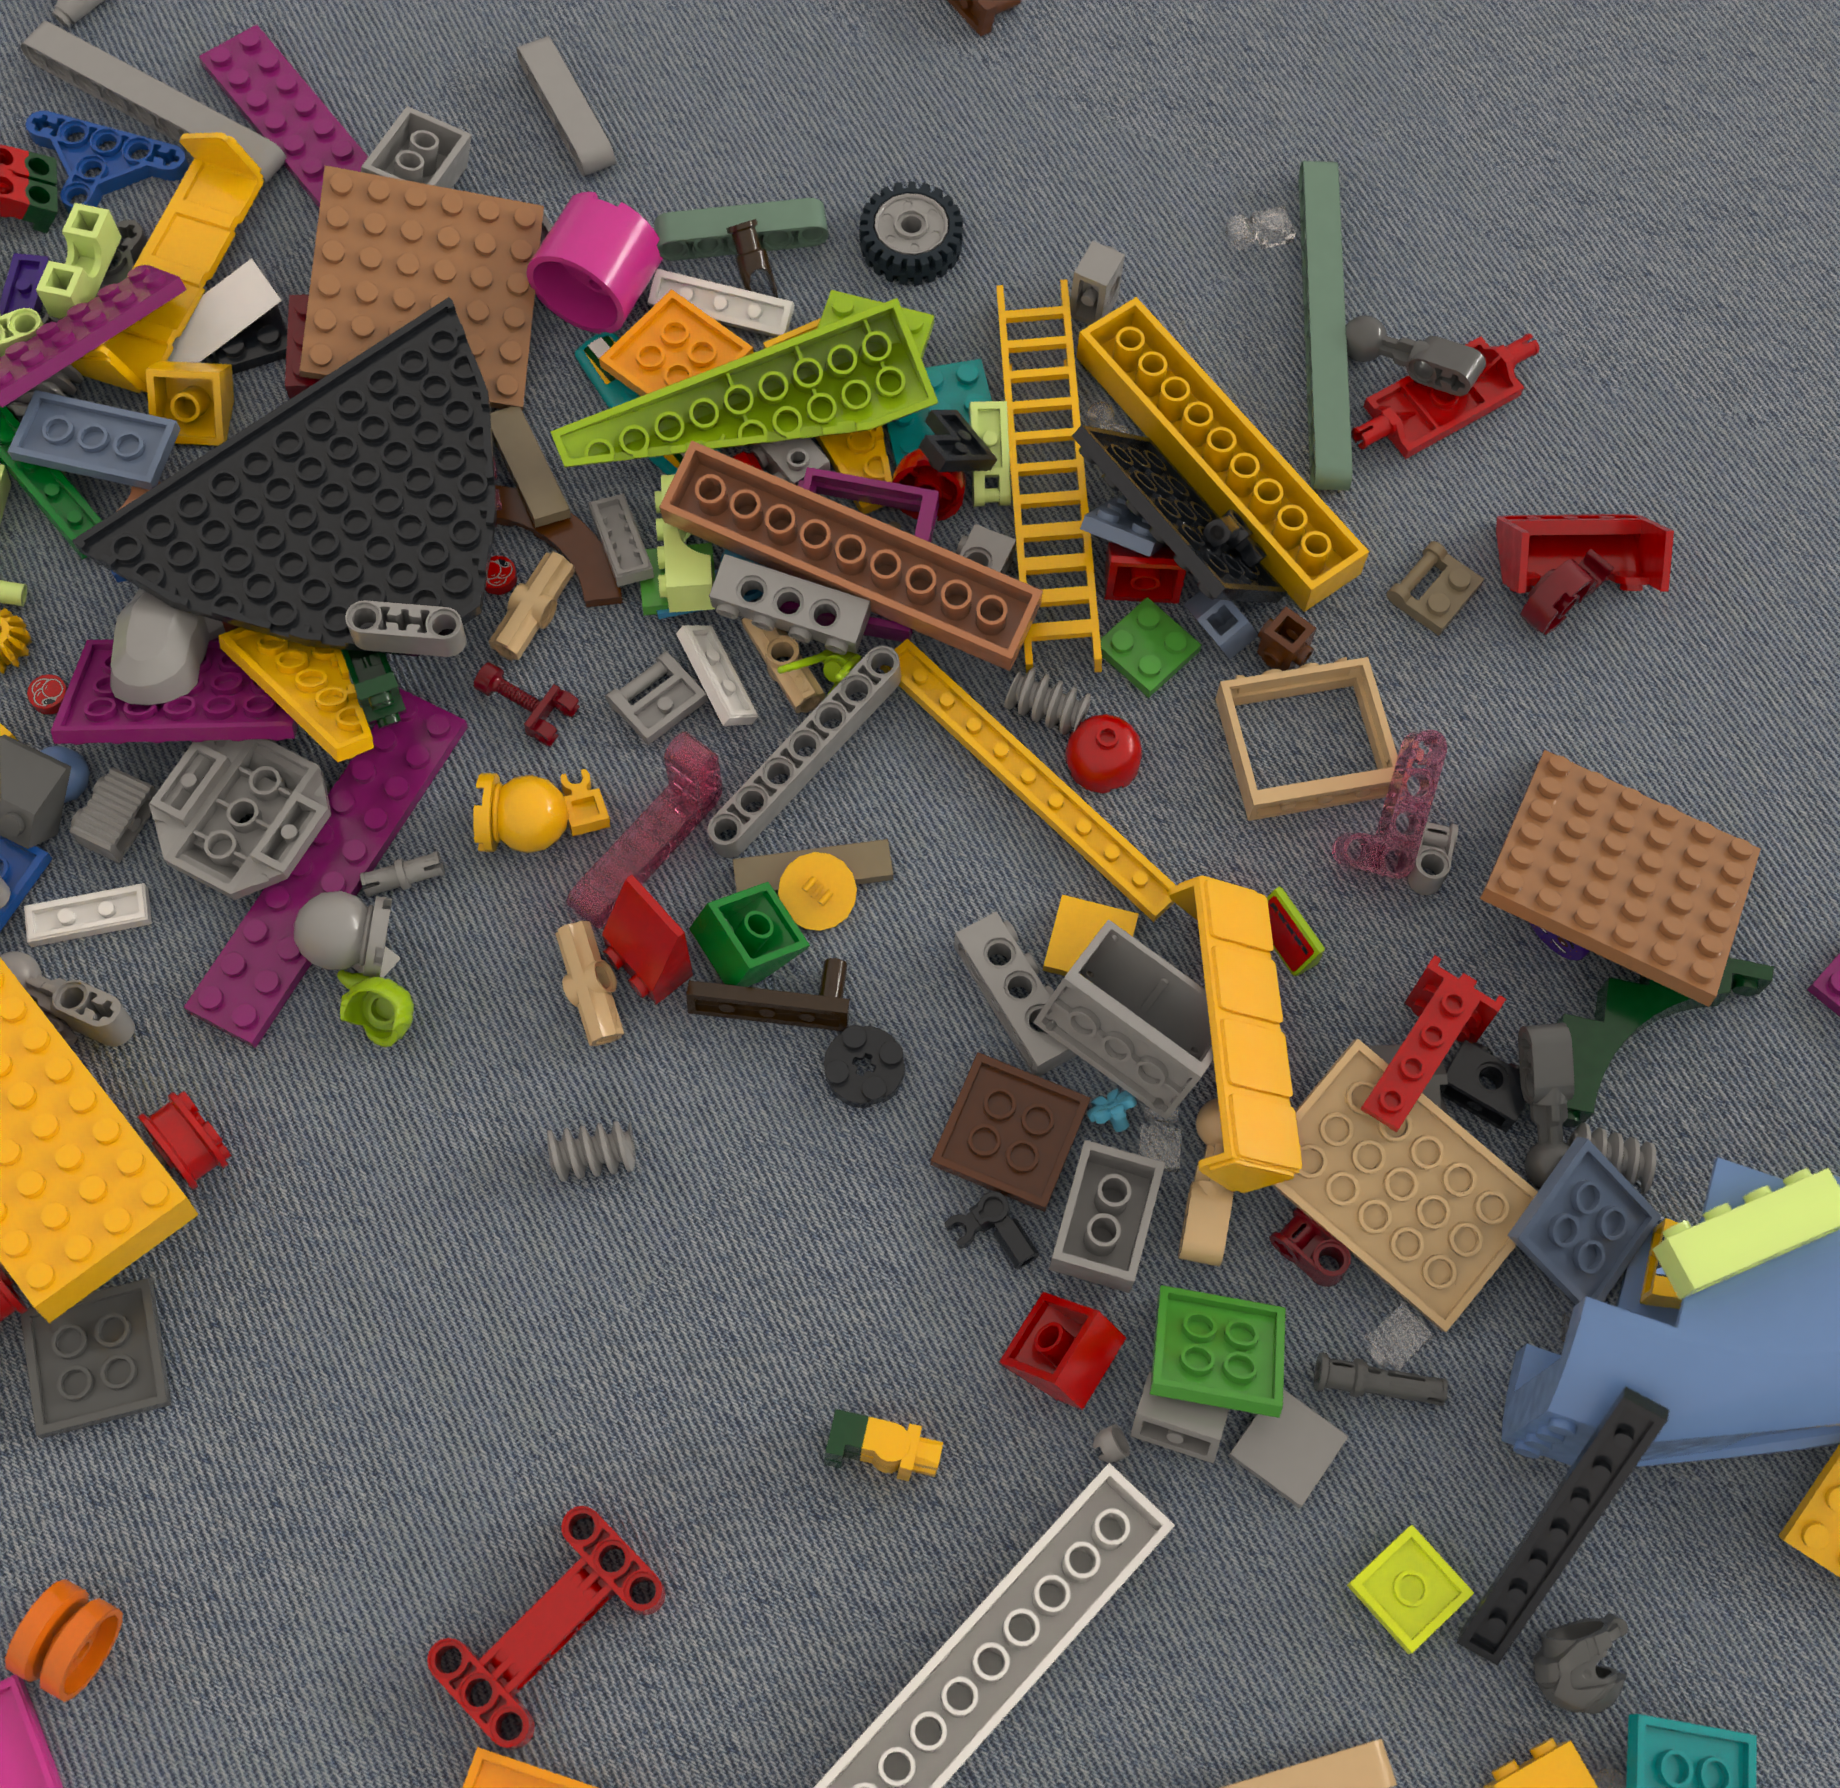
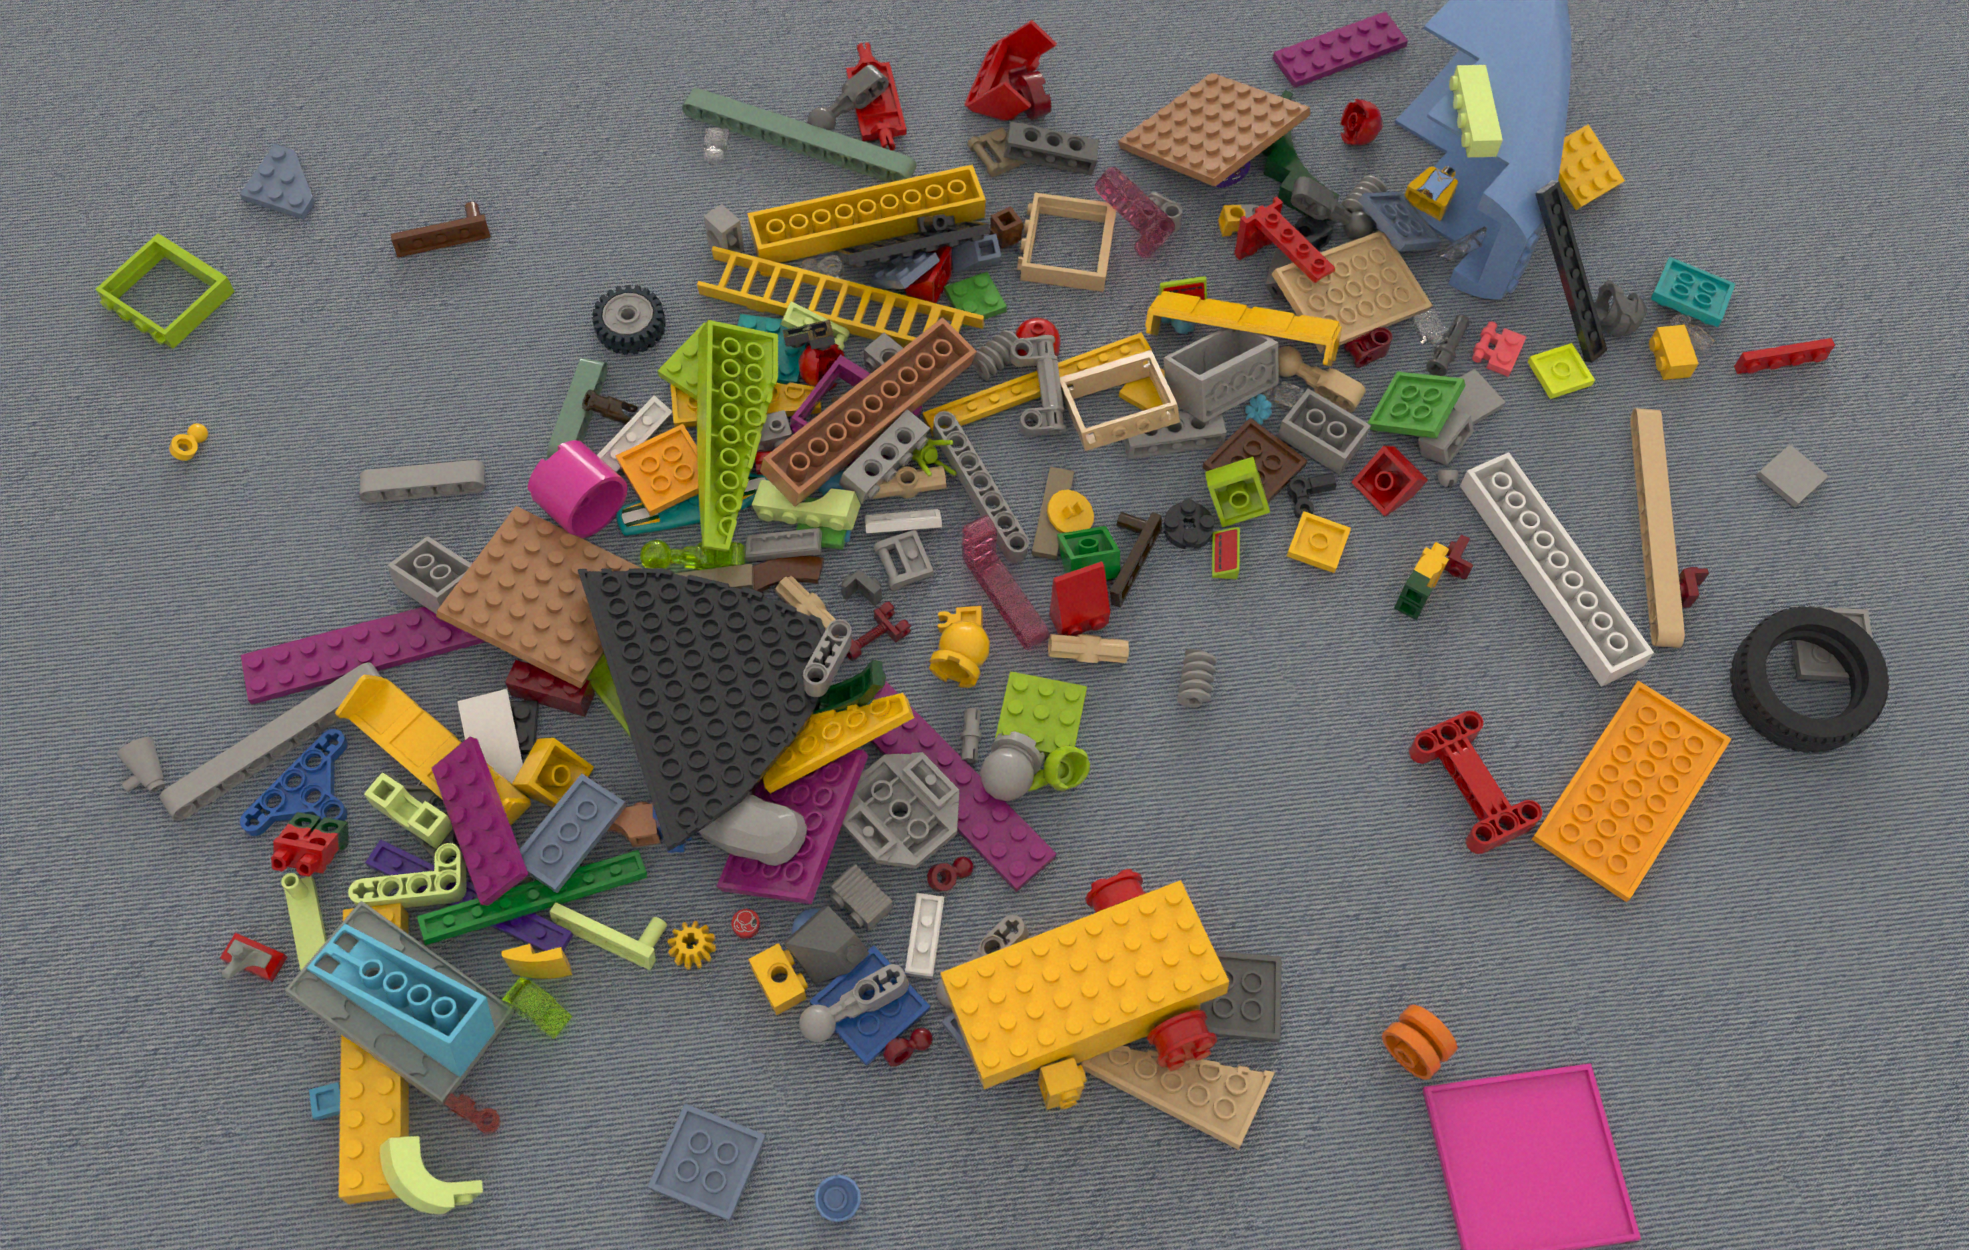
camera: 70 degrees left, 5 degrees down
(199, 928) = (961, 867): none -> dark red plate
(468, 957) = (1042, 710): none -> lime plate
(548, 399) = (660, 555): none -> clear neon green beam
(593, 663) = (865, 585): none -> dark grey bracket
(832, 1135) = (1226, 553): none -> slope
(903, 1268) = (1318, 542): none -> yellow plate
(934, 1111) = (1237, 492): none -> lime slope
(962, 1491) = (1456, 565): none -> dark red bracket
(970, 810) = (1049, 385): none -> light grey piece
(1060, 850) = (1112, 375): none -> tan window
(1413, 1483) = (1506, 350): none -> coral plate
(1474, 710) = (1051, 148): none -> dark grey brick
(1478, 964) = (1230, 217): none -> yellow leg
(1773, 1114) = (1361, 122): none -> red cylinder

